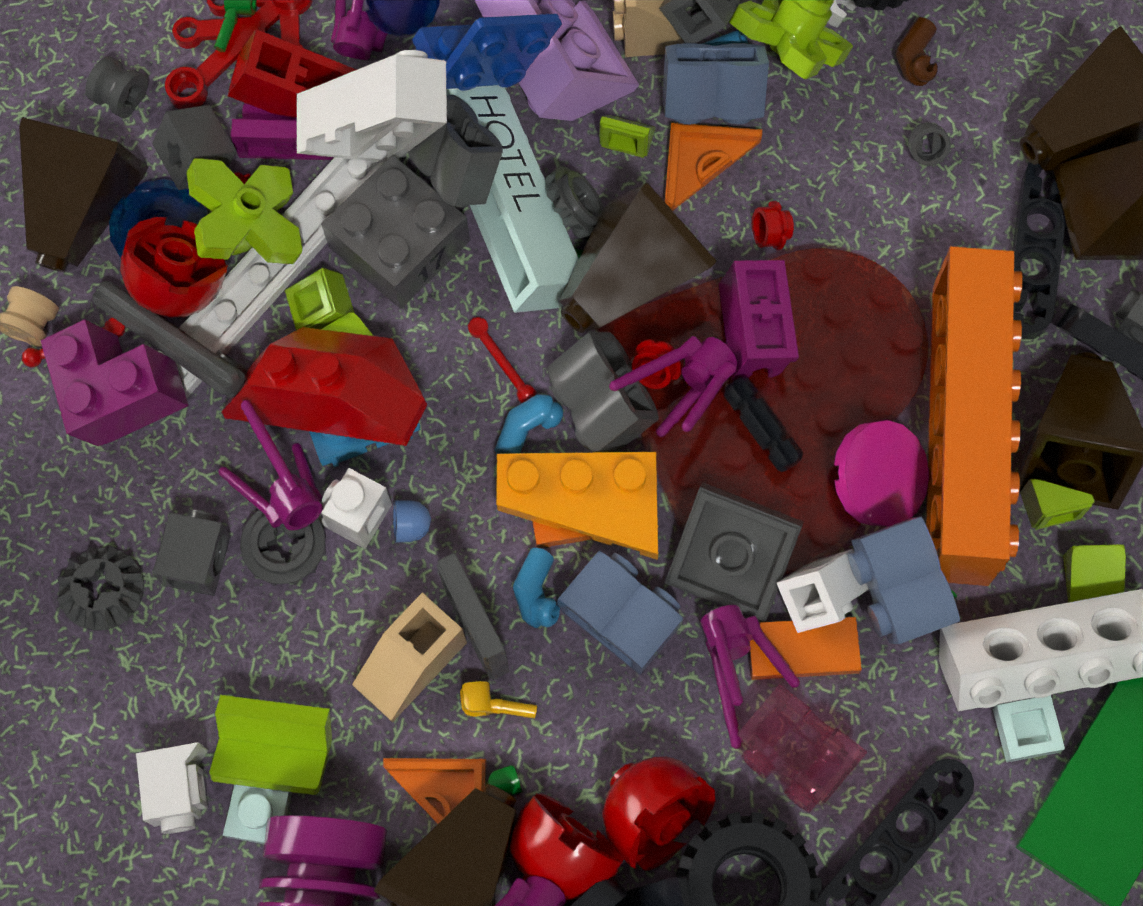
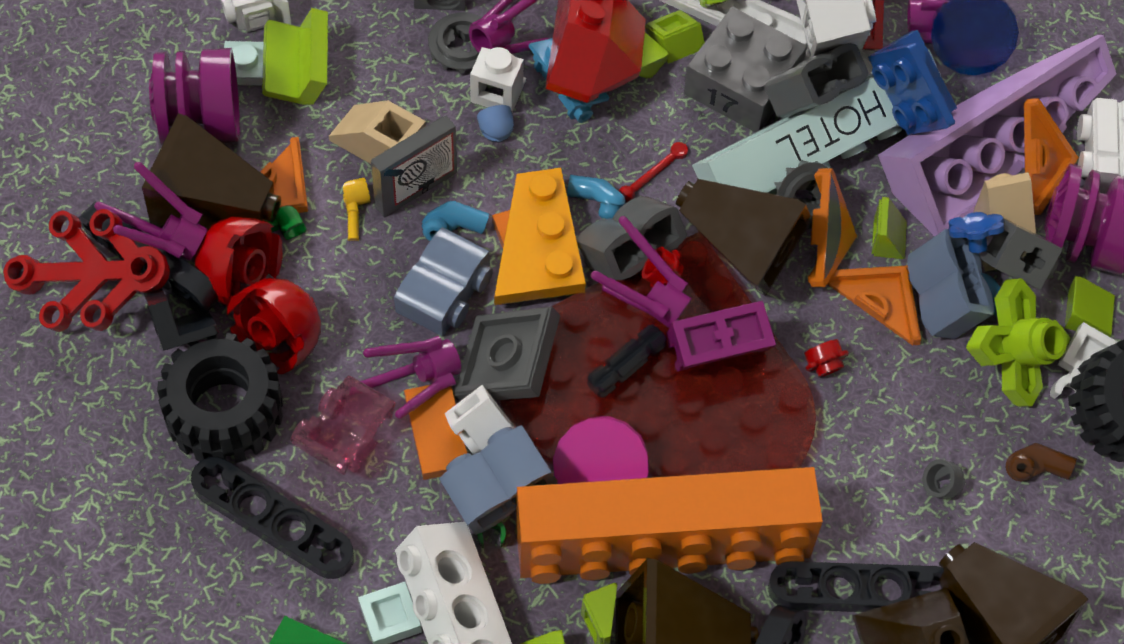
camera: 75 degrees right, 10 degrees down
(622, 181) = (831, 228): none -> orange tile
(675, 30) = (976, 229): none -> blue plant

